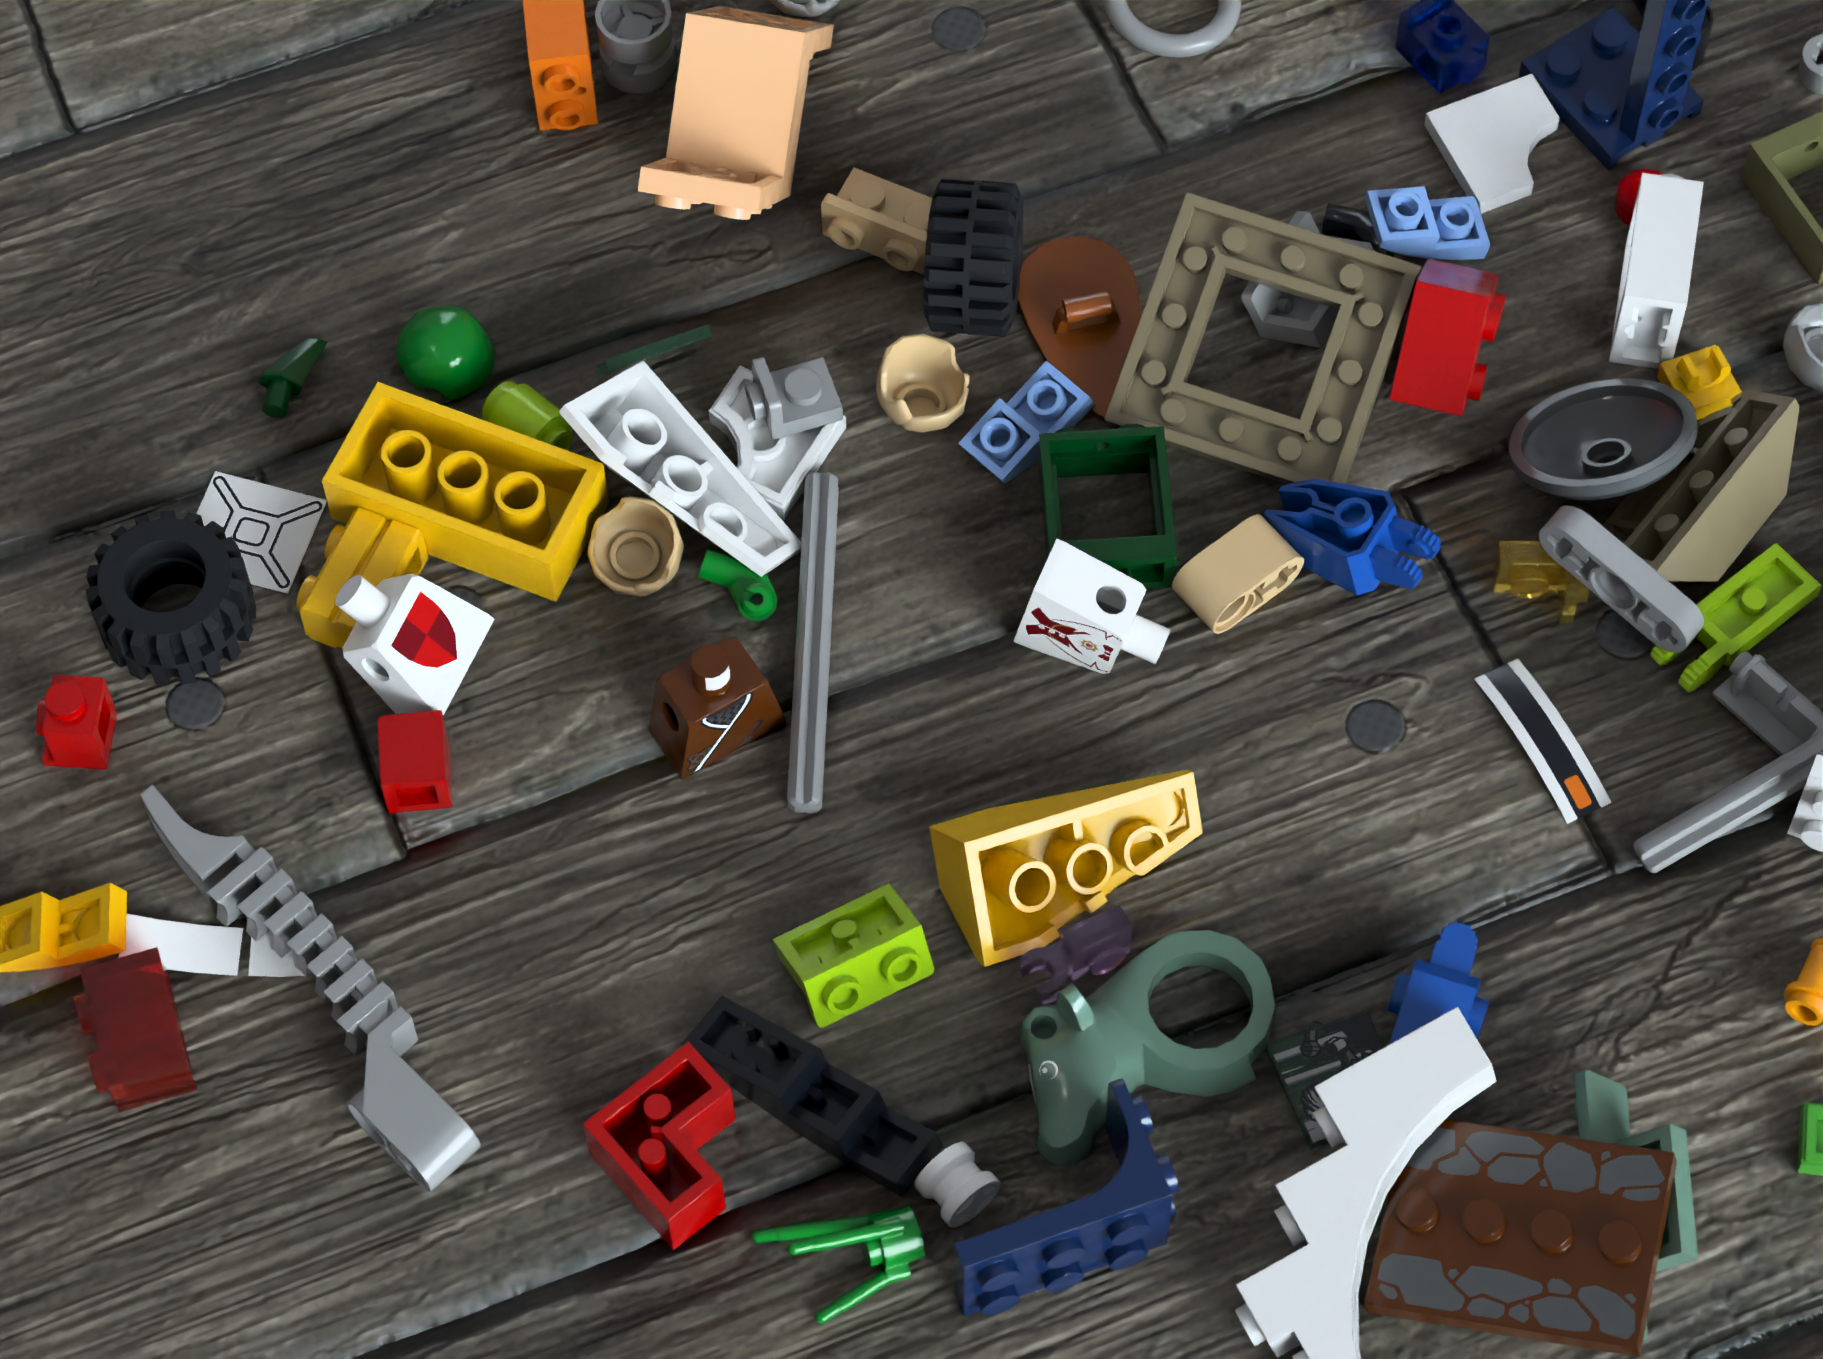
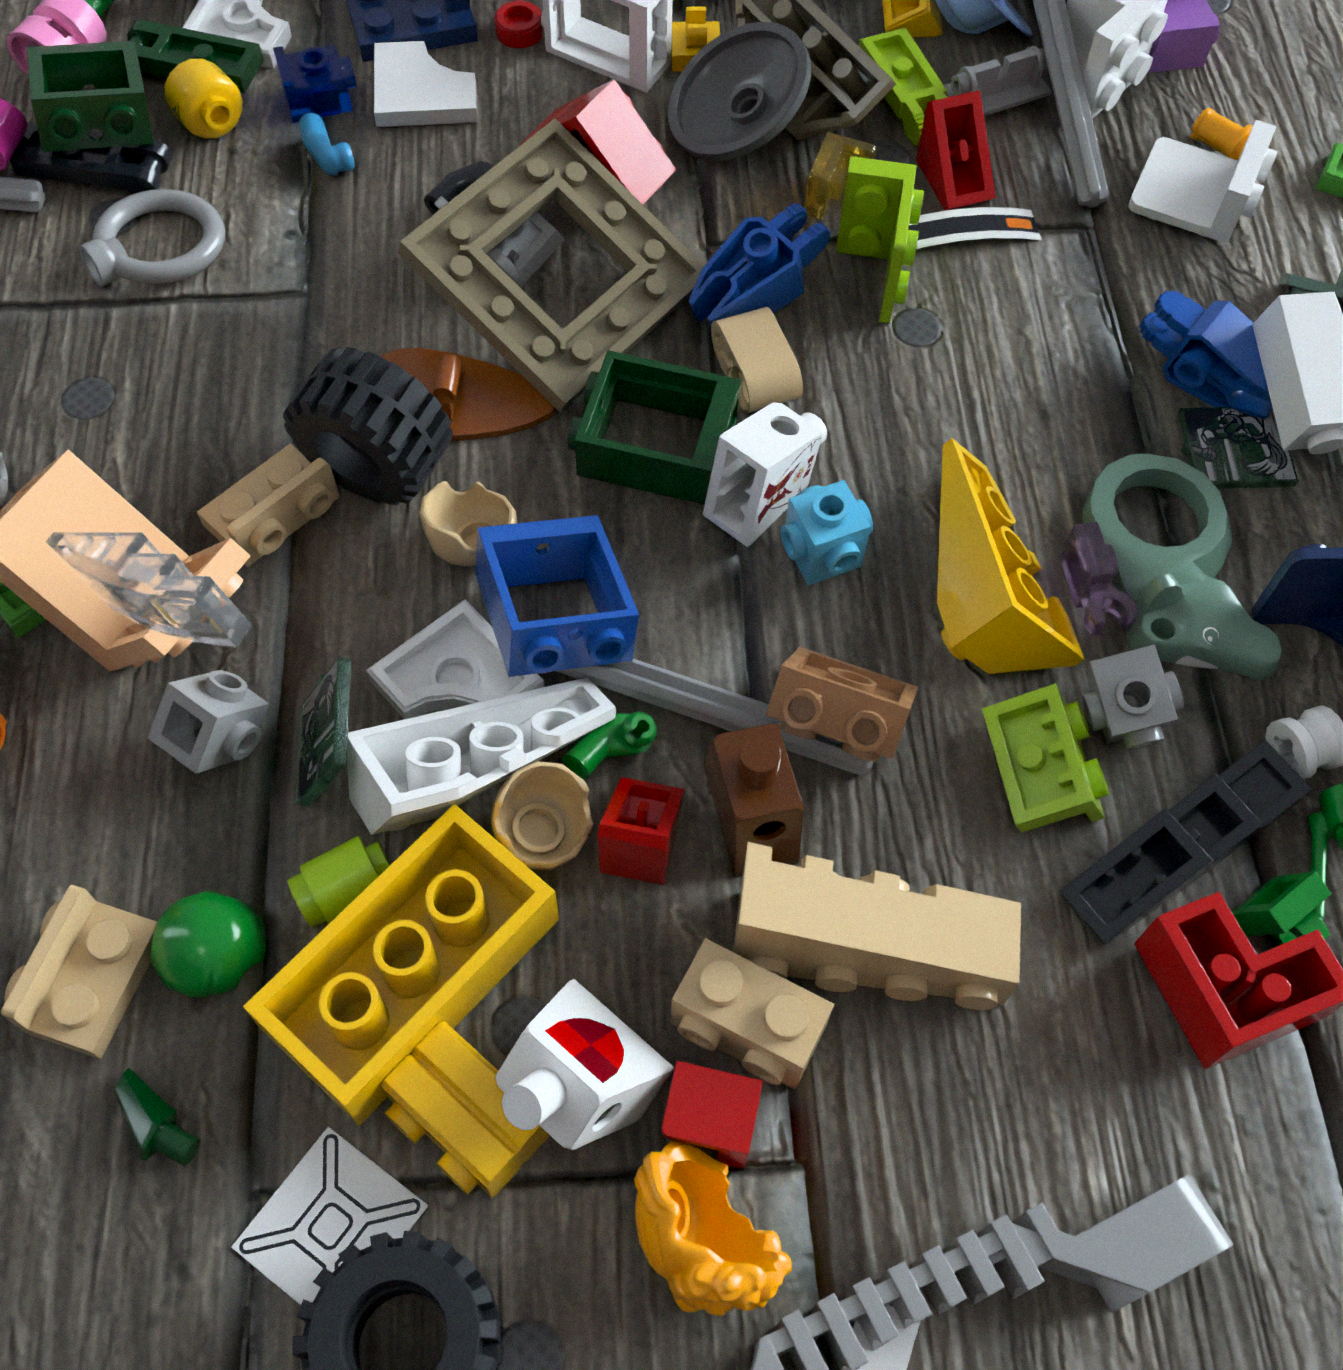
camera: 75 degrees left, 0 degrees up
(315, 775) = (697, 1238): none -> light orange hair
(388, 272) = (80, 973): none -> tan bracket
(508, 763) = (749, 1014): none -> tan brick
(613, 832) = (876, 932): none -> tan wedge
(633, 262) = (208, 720): none -> light grey brick
(657, 627) = (639, 830): none -> red slope
(674, 141) = (151, 586): none -> clear slope
(761, 1189) = (1284, 908): none -> green tile
(793, 397) = (433, 628): light grey bracket -> none
(838, 749) = (842, 703): none -> medium nougat plate
(900, 445) = (574, 551): none -> blue window
(939, 1003) = (1136, 675): none -> light grey brick
(1009, 432) = (536, 464): light blue slope -> none
(1035, 691) = (826, 531): none -> medium azure brick
(1357, 77) = (316, 140): none -> dark azure arm
(1427, 227) = (483, 136): light blue slope -> none
(1444, 649) = (876, 221): none -> lime bracket
(1621, 579) = (850, 112): light grey beam -> none
(1630, 691) = (956, 151): none -> red slope
(1715, 962) = (1201, 187): none -> white bracket

